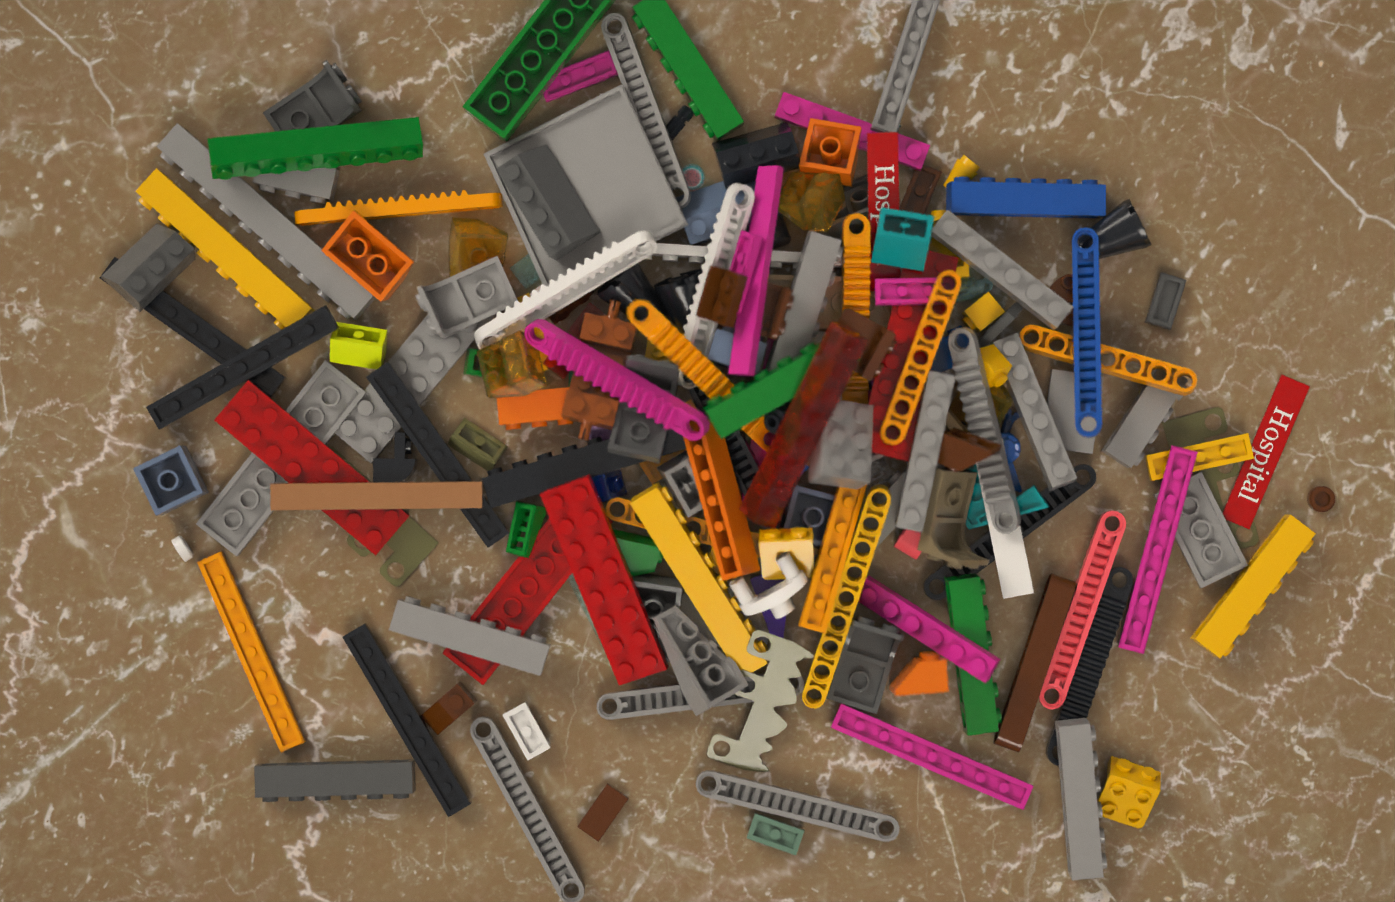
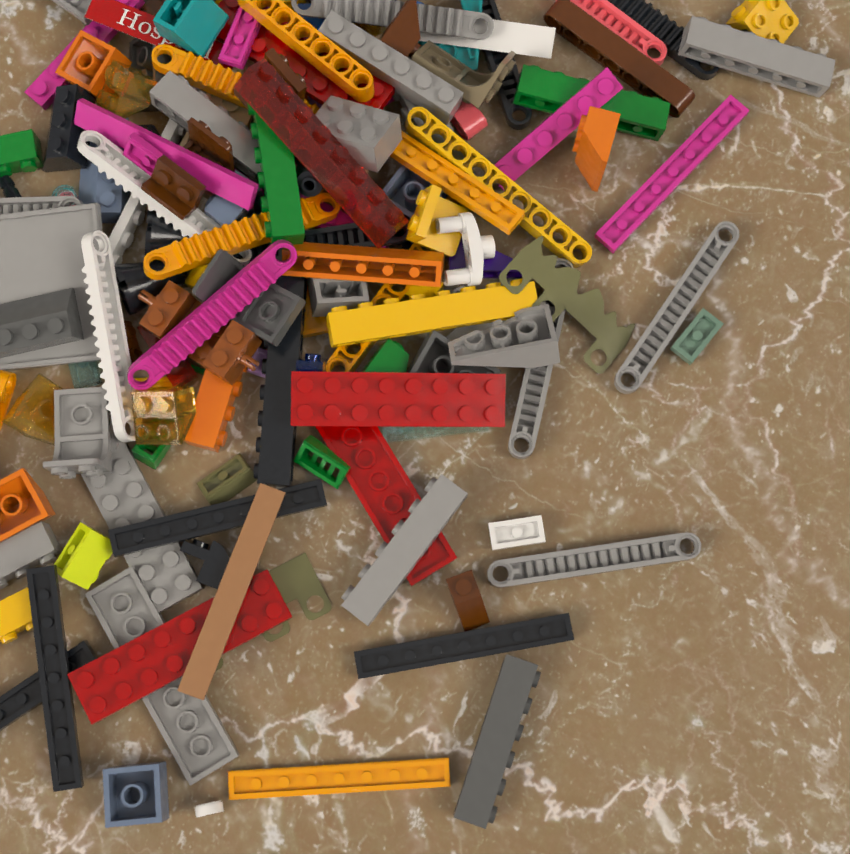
camera: 65 degrees left, 10 degrees down
(602, 812) = (620, 489): reddish brown tile -> none
(864, 664) = (566, 195): dark grey bracket -> none

